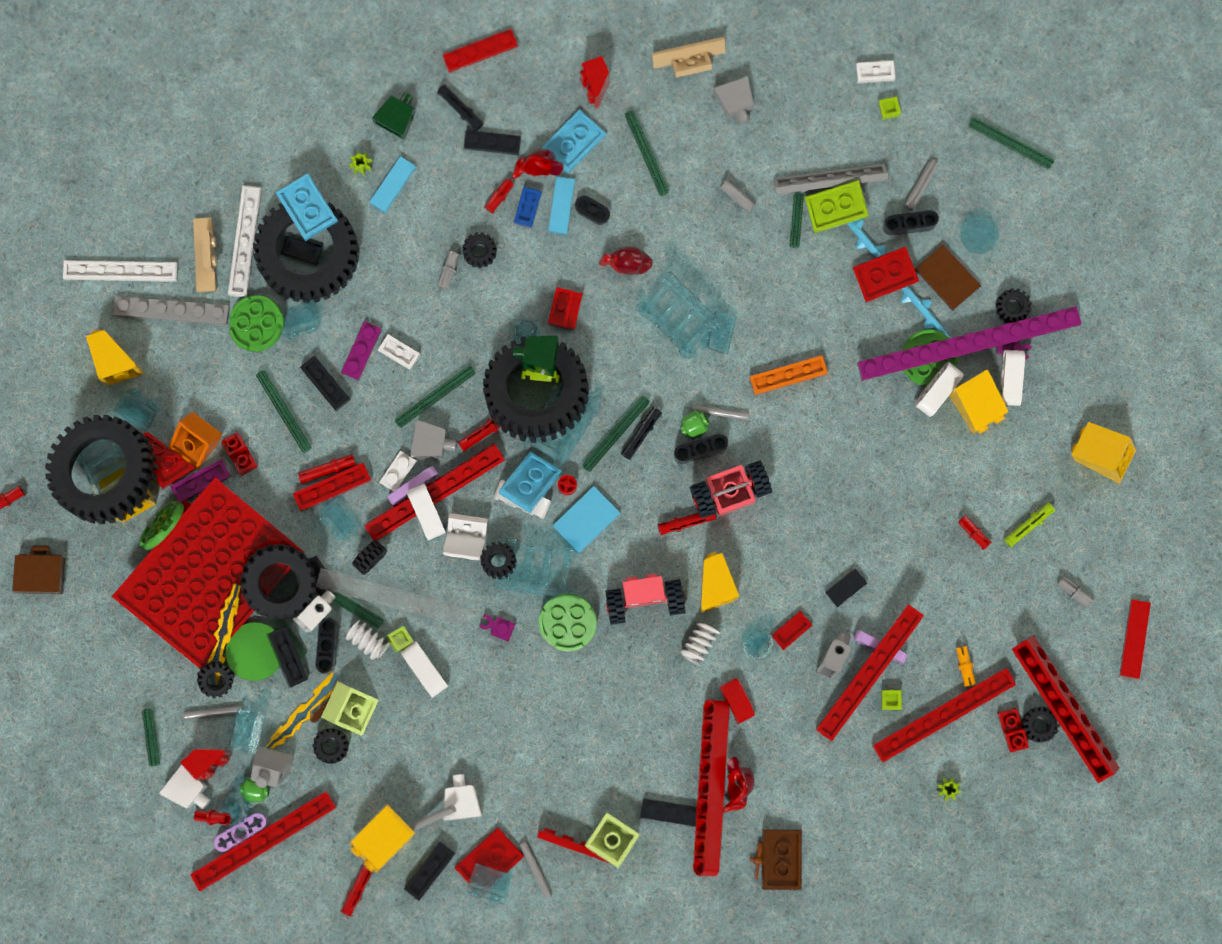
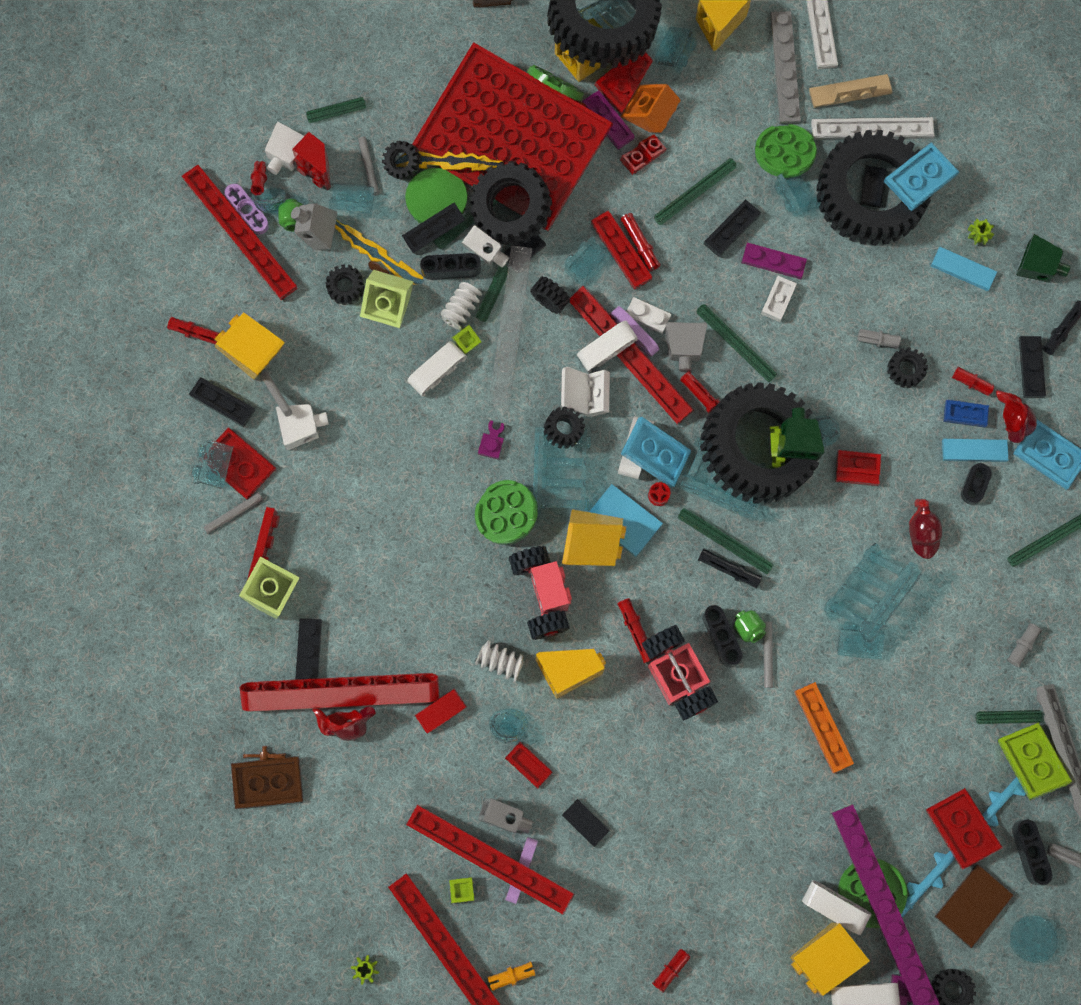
camera: 80 degrees right, 5 degrees down
(603, 548) = (593, 539): none -> yellow slope

